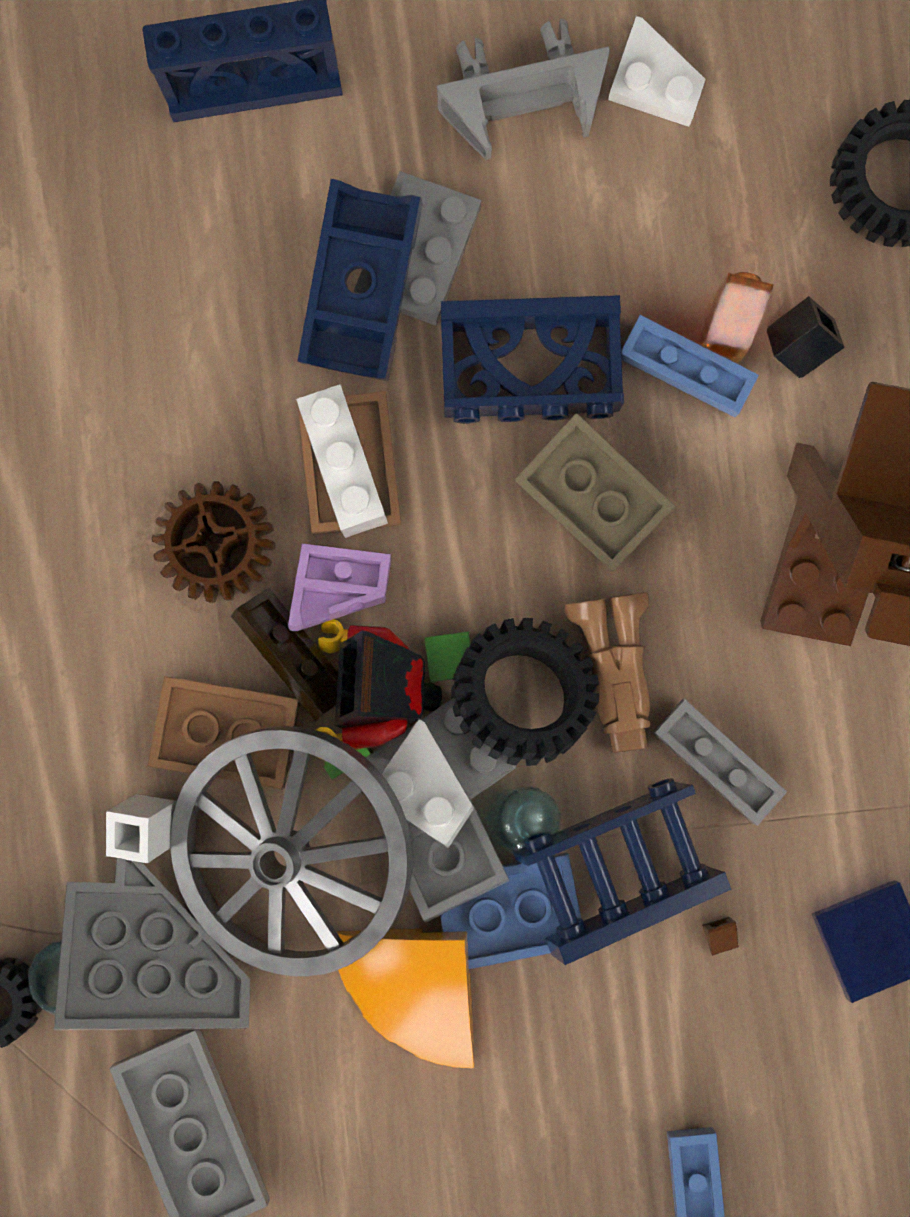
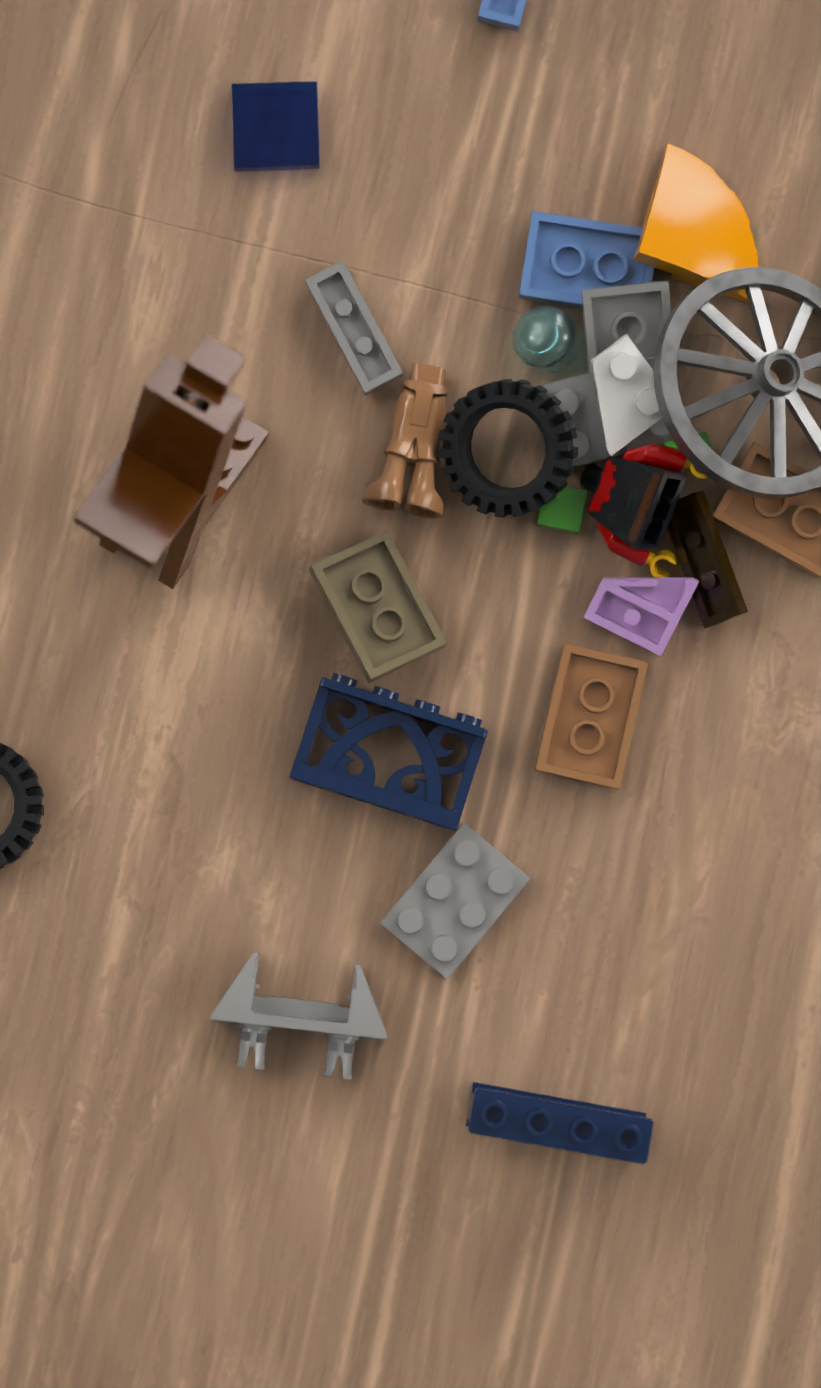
camera: 160 degrees left, 0 degrees up
(195, 545) = (743, 649): reddish brown gear -> none
(342, 461) = (599, 708): white brick -> none
(367, 233) = (497, 911): dark blue piece -> none
(656, 77) = (168, 988): white wing -> none
(656, 899) = (456, 228): dark blue fence -> none
(688, 366) = (246, 695): medium blue plate -> none
(721, 935) = (407, 178): reddish brown piece -> none
(735, 315) = (191, 719): clear orange slope -> none
(804, 337) = (127, 683): black panel -> none

